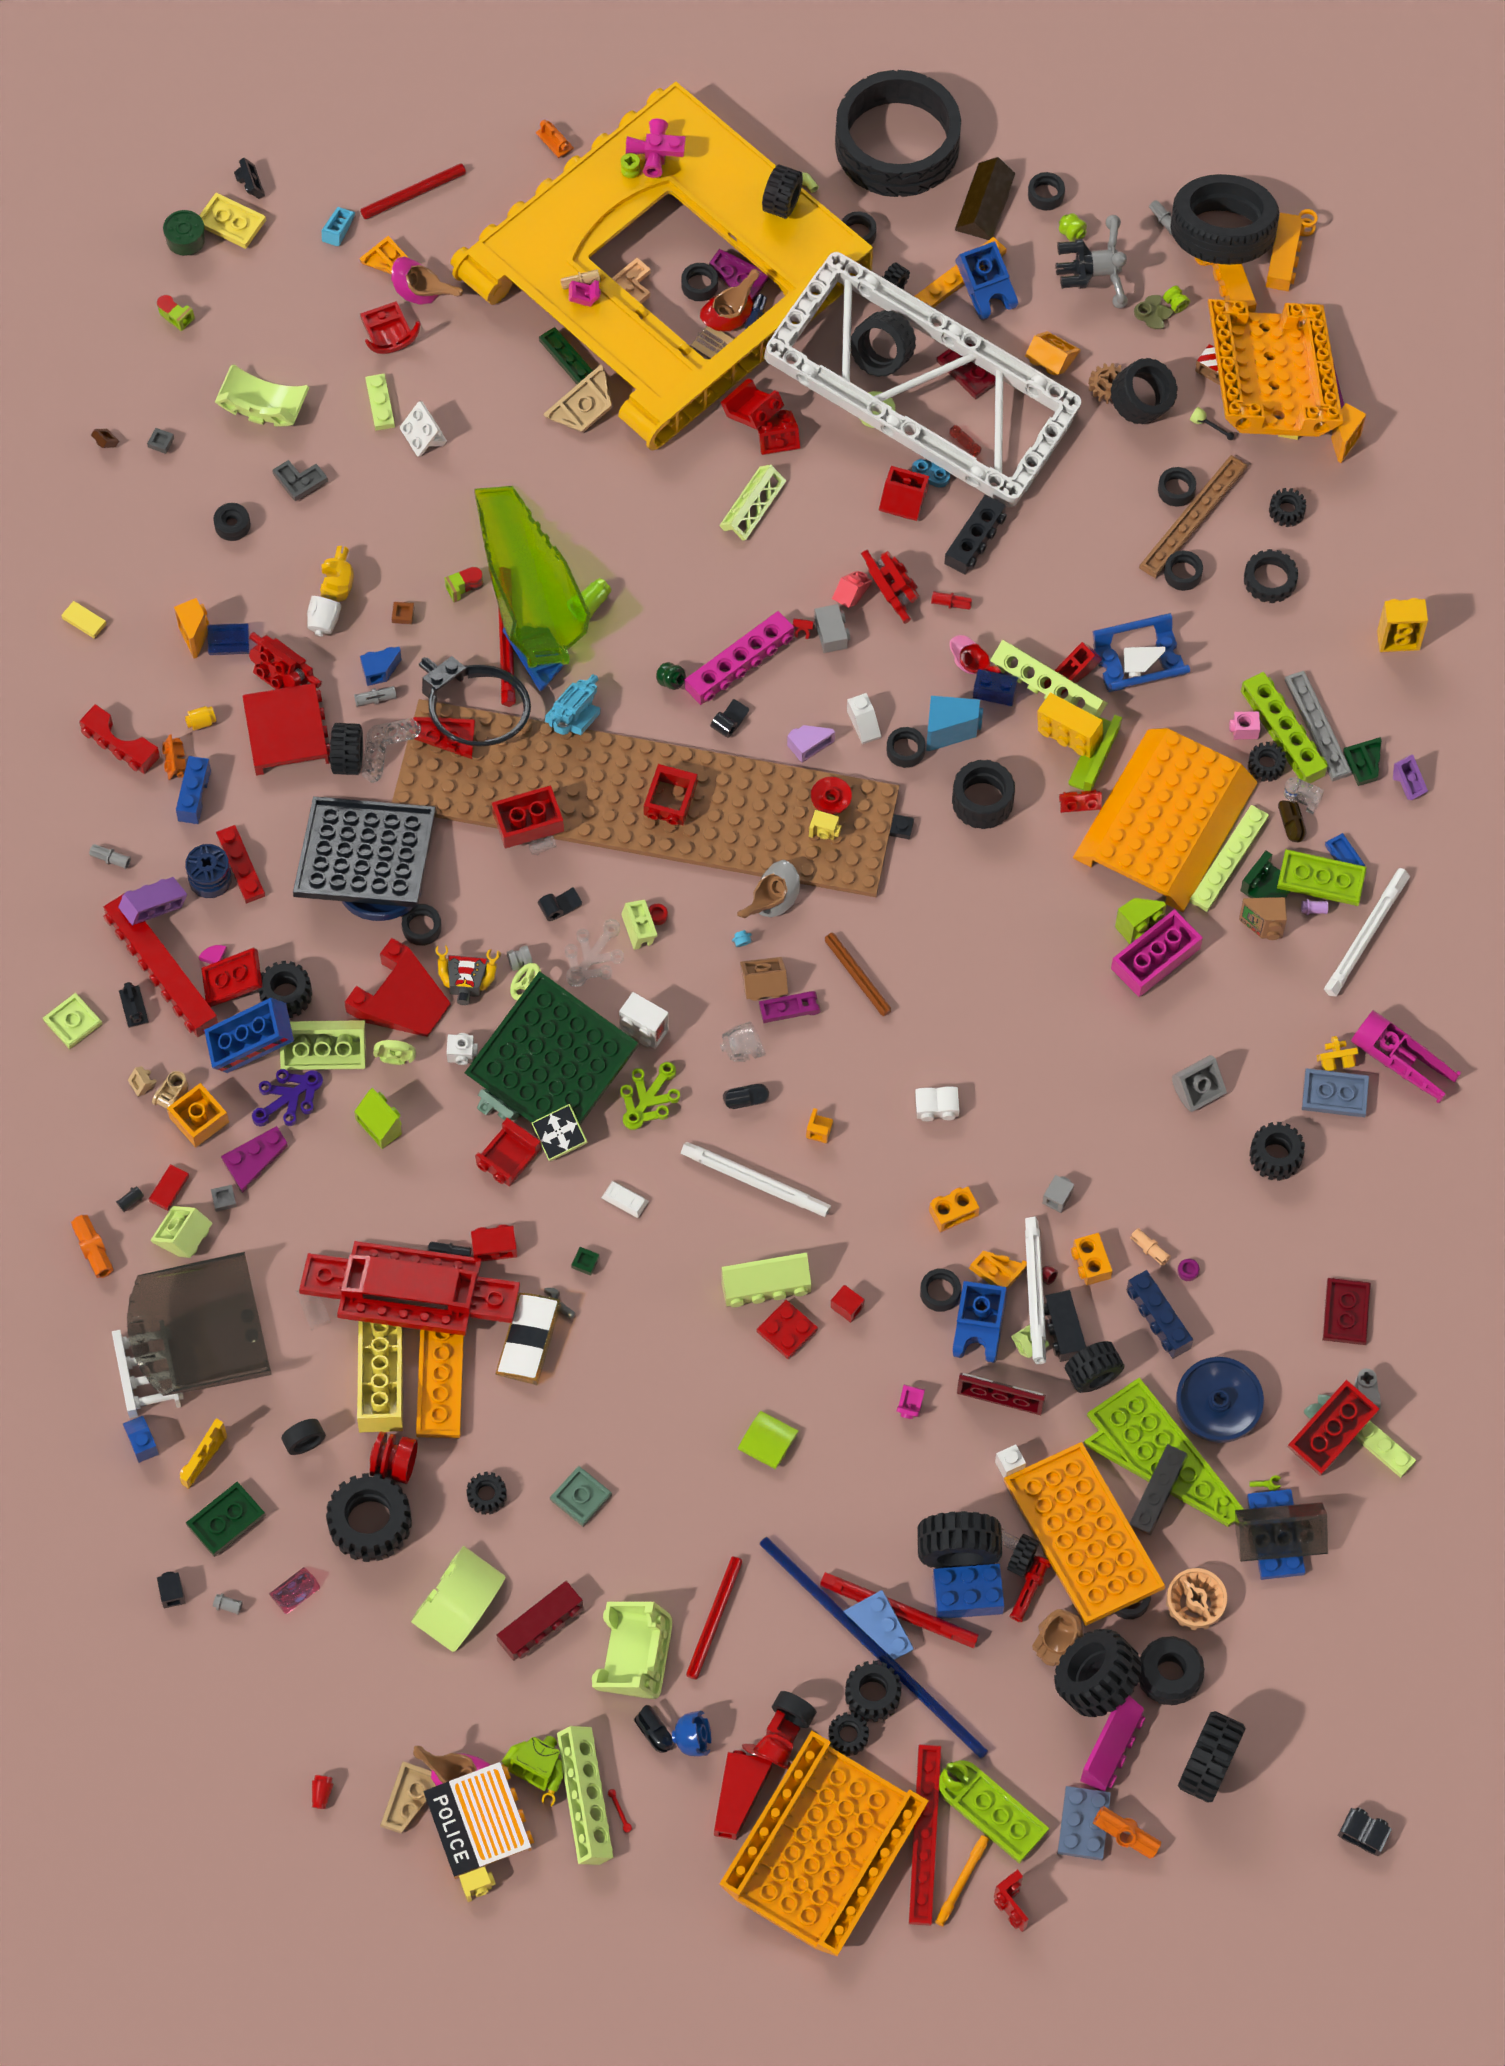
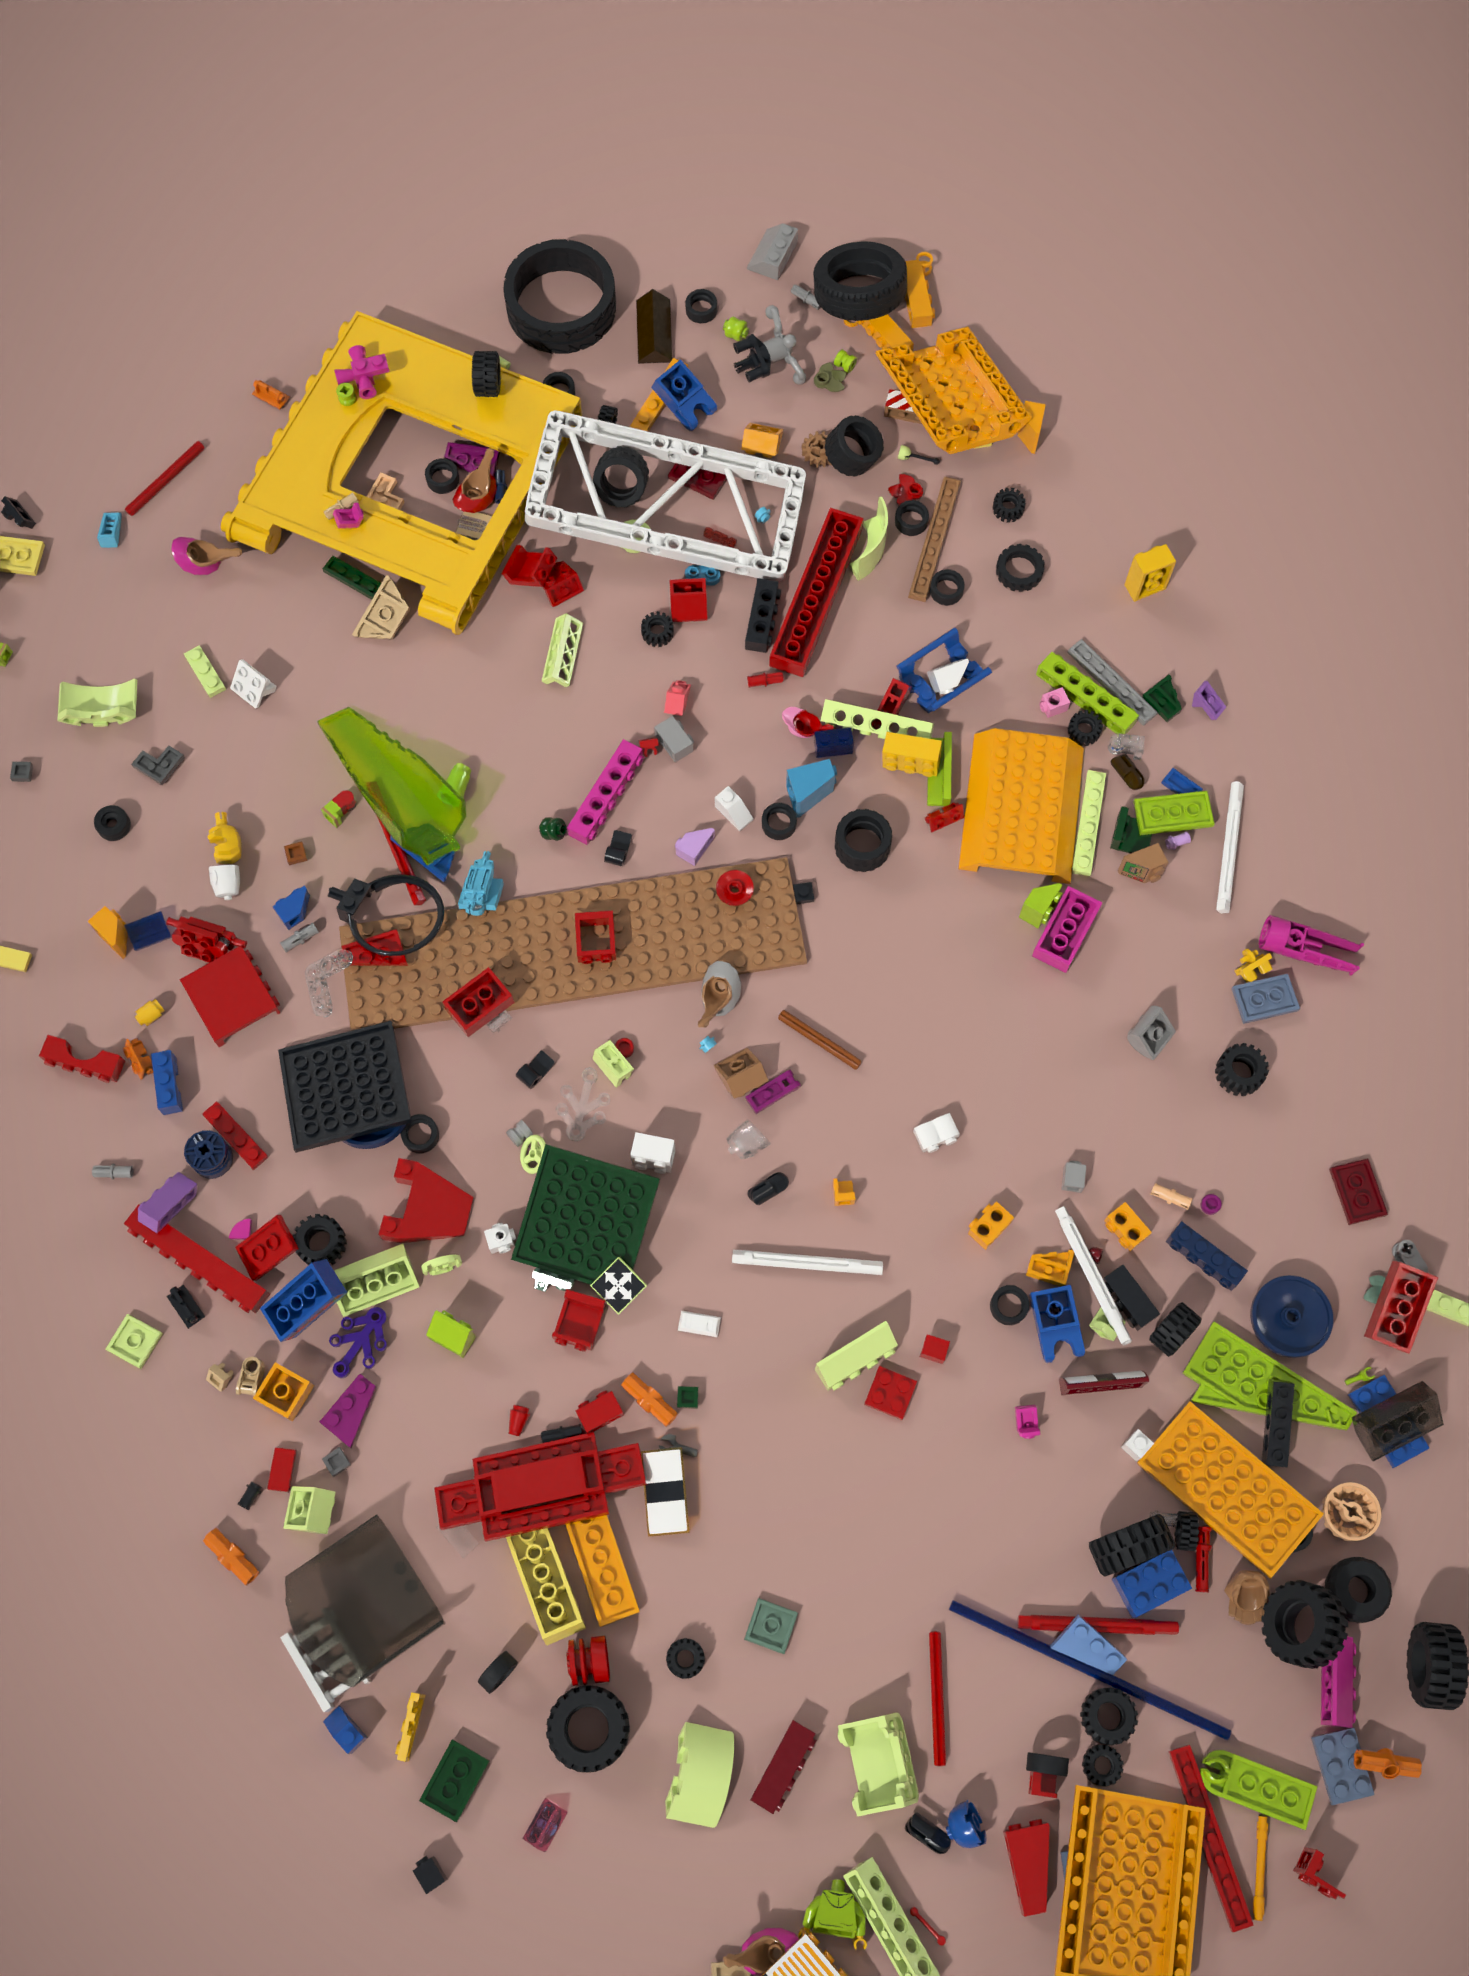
camera: 20 degrees left, 5 degrees up
(228, 1604) = (487, 1866): light grey pin -> none
(346, 748) = (292, 996): black tyre -> none
(383, 255) = (159, 542): light orange wing -> none
(388, 329) = (188, 605): red piece -> none
(413, 1221) = (518, 1419): none -> red cone
(466, 974) = (478, 1166): torso -> none
(547, 1249) = (649, 1399): none -> orange piece
(648, 1098) = (683, 1222): lime plant -> none
(767, 1440) = (916, 1506): lime slope -> none
(773, 1748) = (1043, 1813): red piece -> none
(824, 825) = (740, 917): light yellow brick -> none
(860, 522) = (654, 620): none -> black tyre
(892, 591) = (717, 688): red piece -> none
(1020, 431) = (762, 515): none -> medium azure plate
(1041, 529) = (816, 592): none -> red brick
(1111, 514) = (876, 535): none -> yellowish green panel
(1150, 157) = (774, 251): none -> light grey slope
(1182, 455) = (904, 490): none -> red plate

